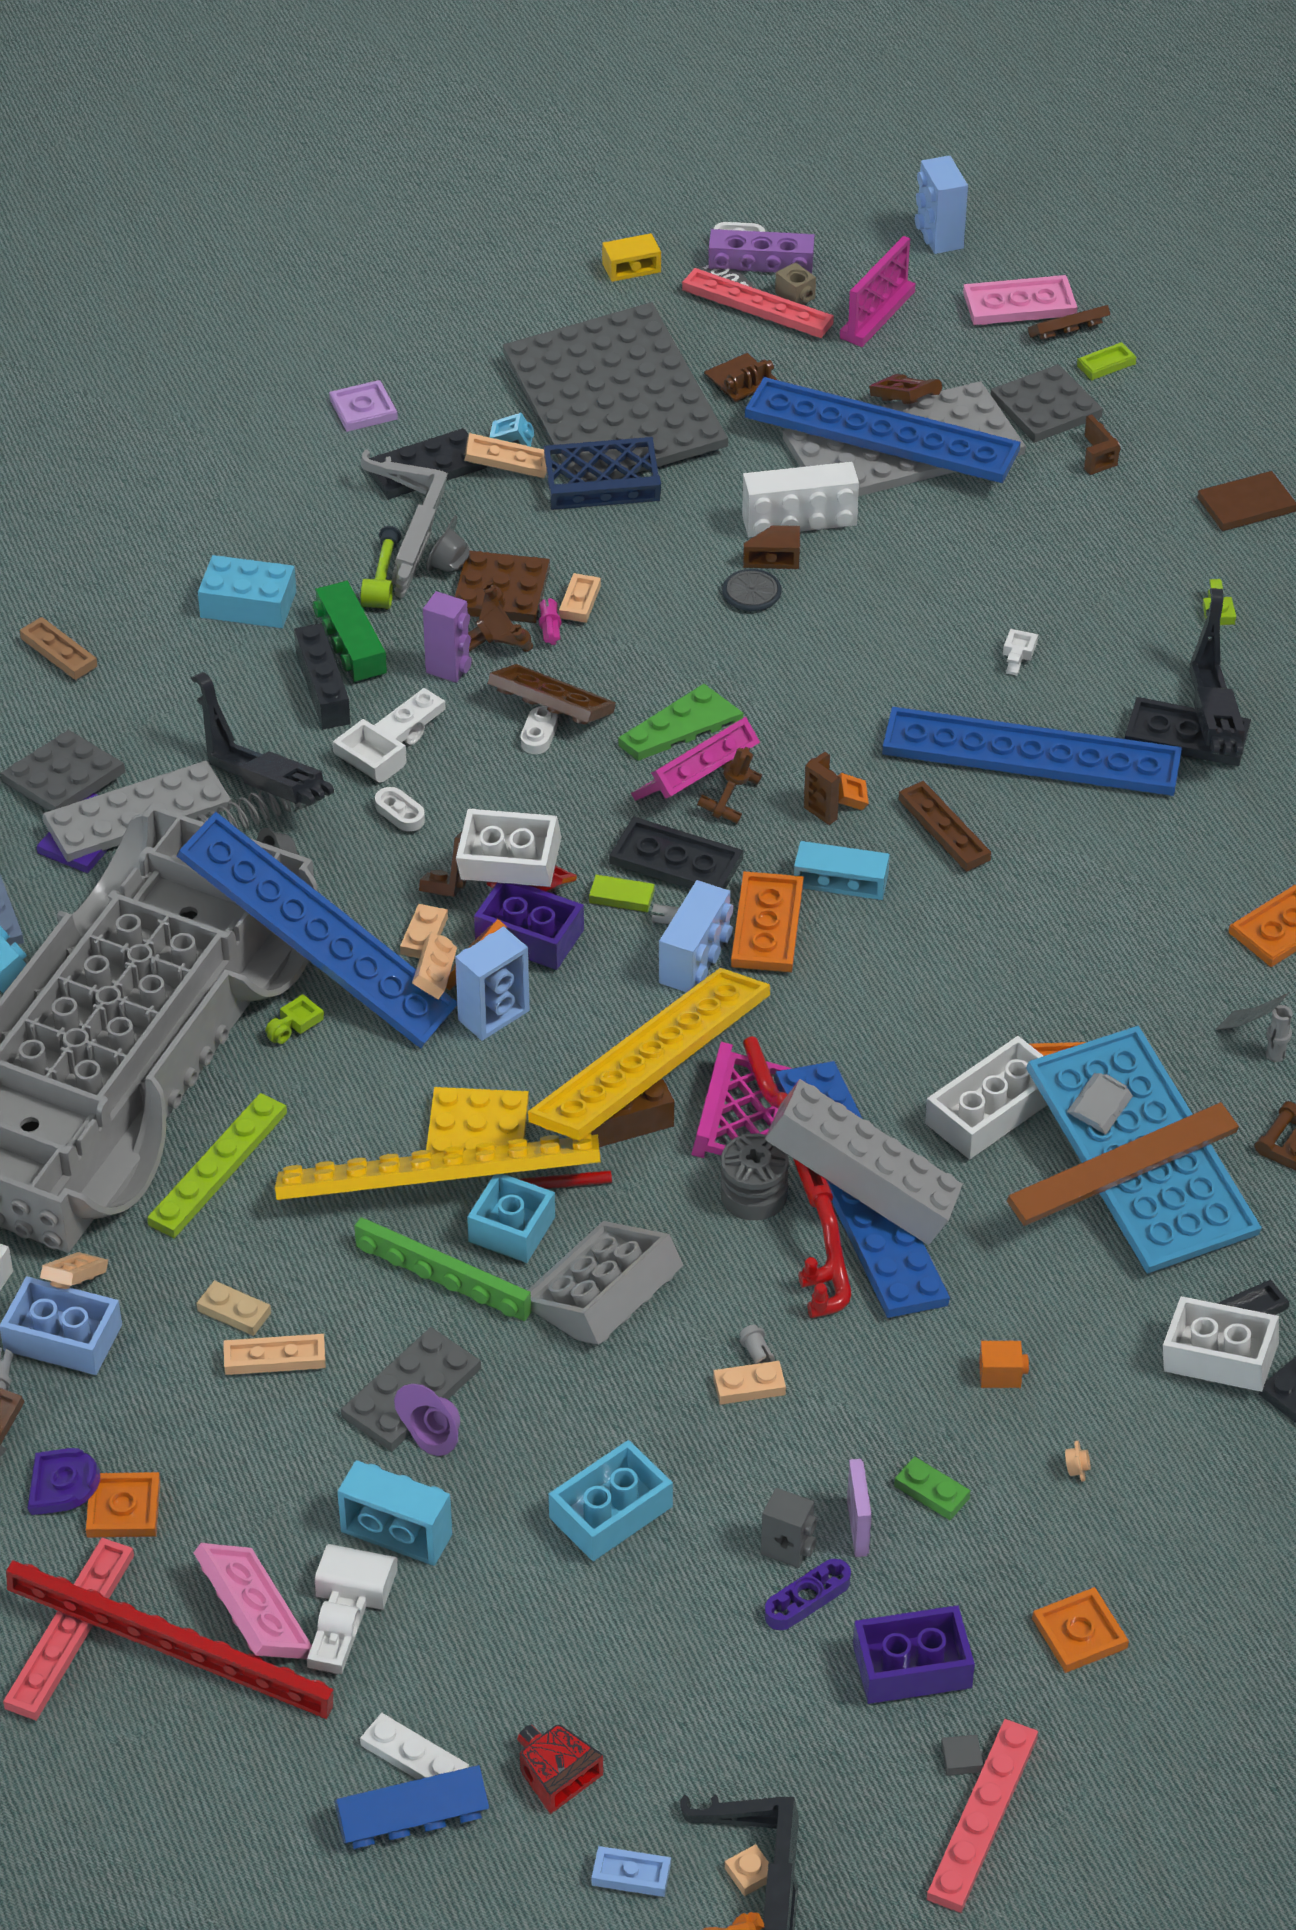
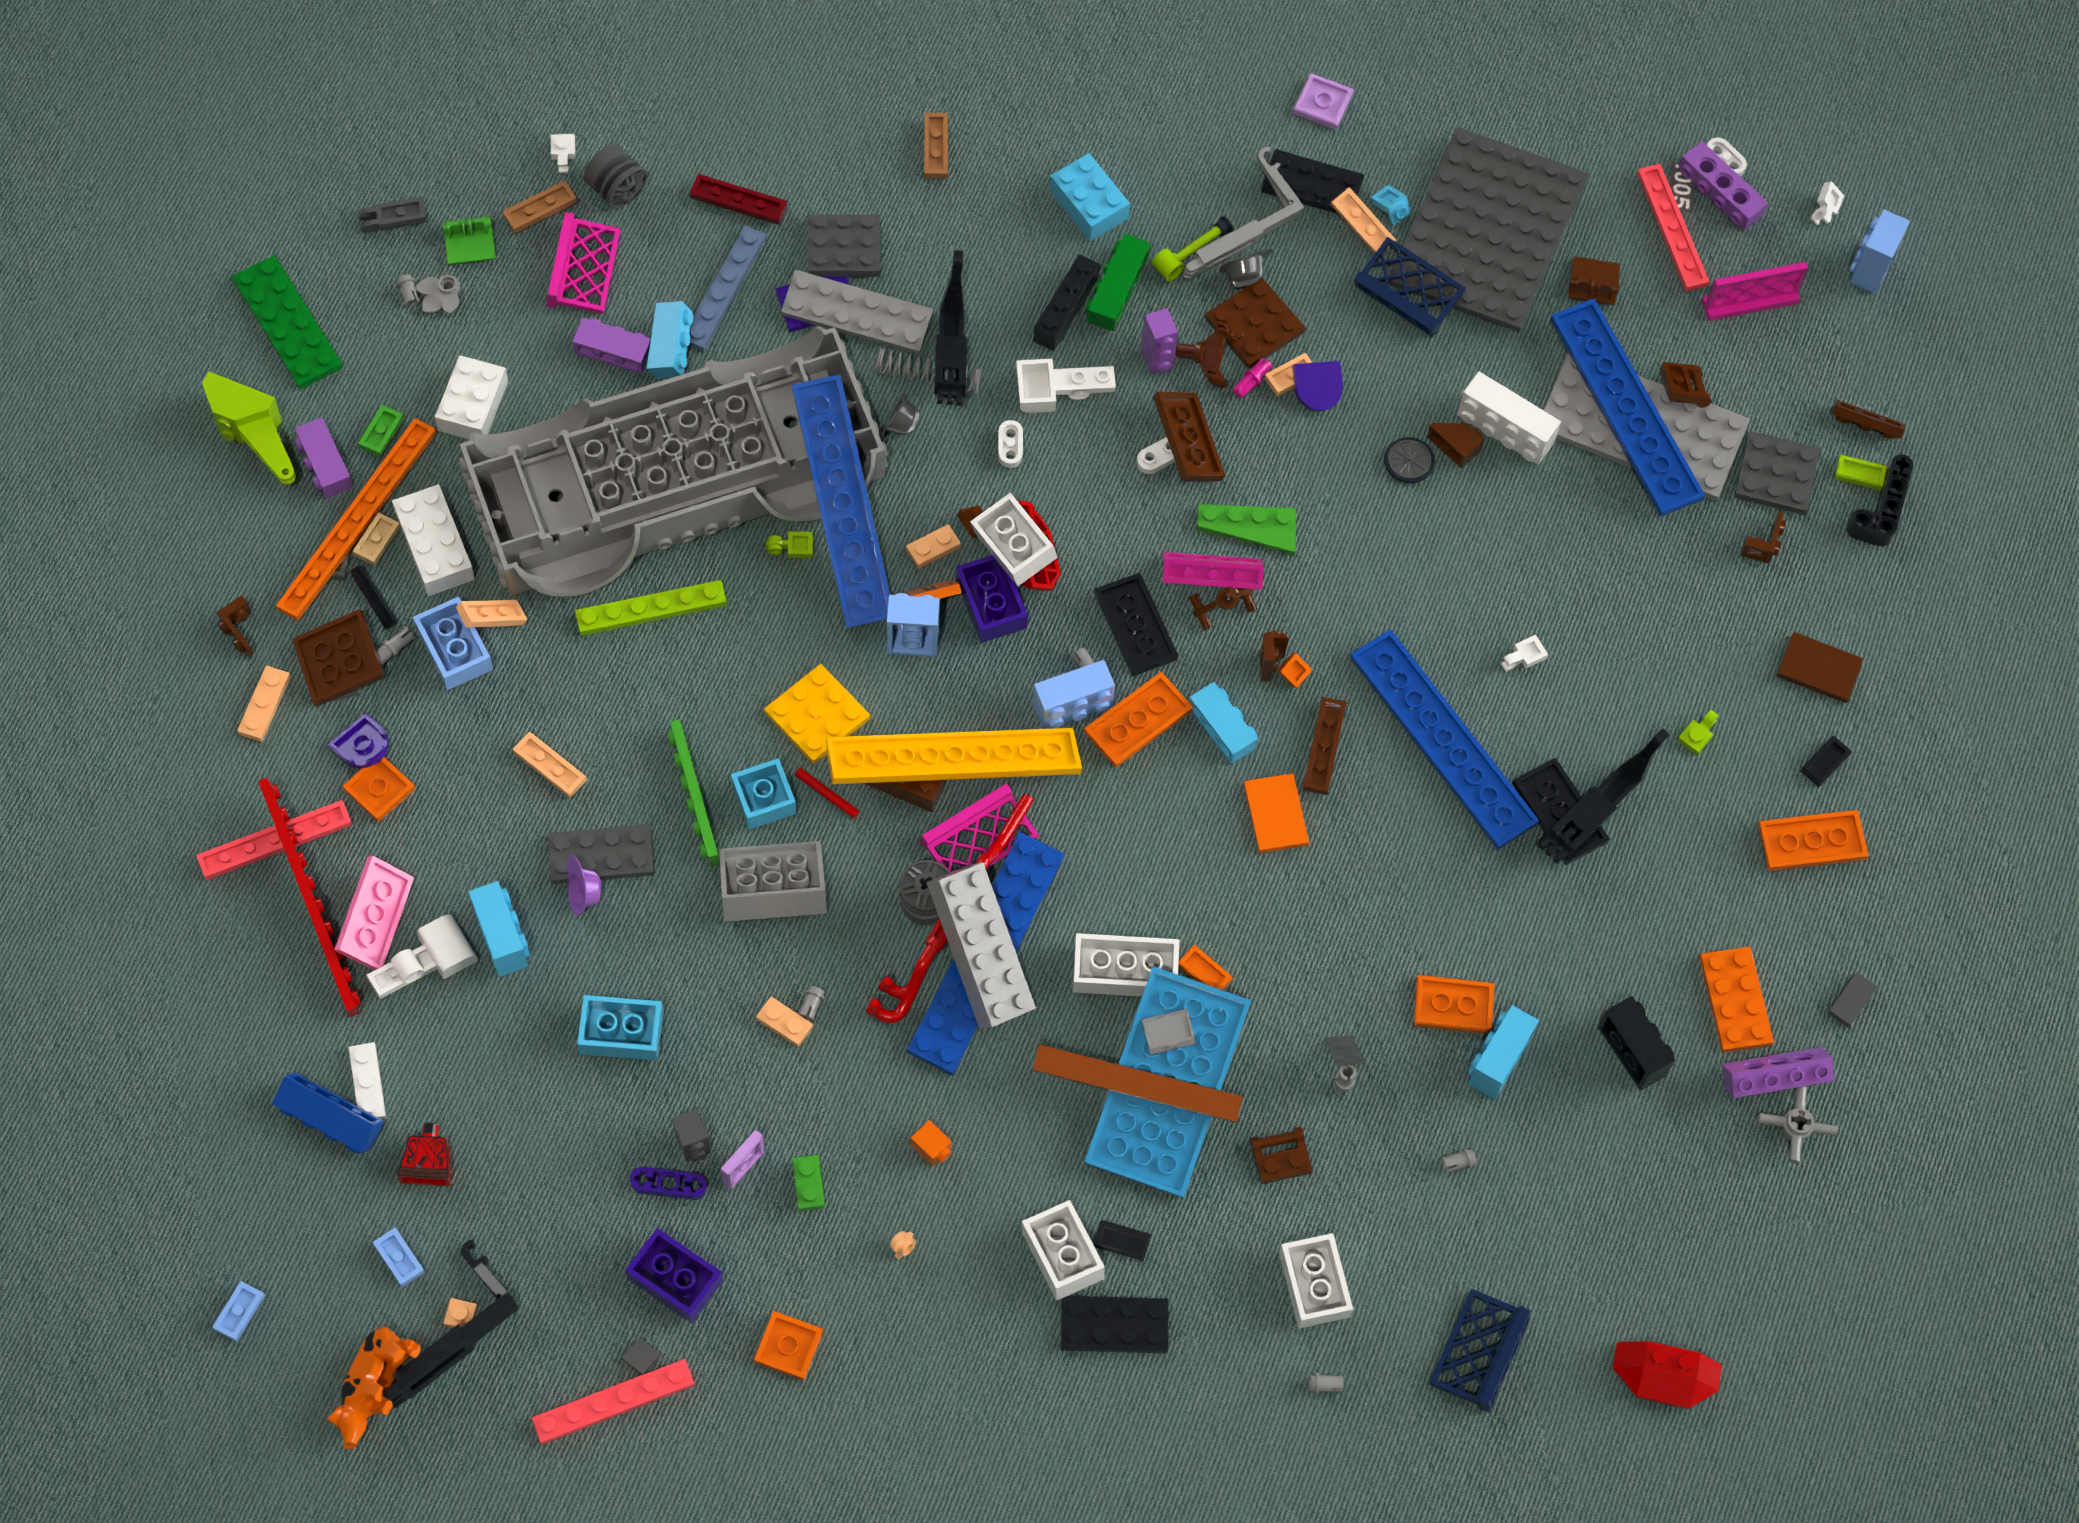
camera: 40 degrees right, 20 degrees up
(233, 1308) = (562, 713): tan plate -> none
(428, 1167) = (750, 722): yellow plate -> none
(435, 964) = (903, 579): light nougat plate -> none
(612, 586) = (1318, 384): none -> dark purple tile
(621, 893) = (1077, 621): lime tile -> none
(631, 257) = (1628, 119): yellow brick -> none
(795, 284) = (1715, 226): dark tan brick -> none
(855, 212) = (1829, 201): none -> white plate
(966, 903) = (1276, 813): none -> orange tile
(1019, 300) = (1857, 372): bright pink plate -> none
(1165, 374) = (1888, 500): none -> black beam

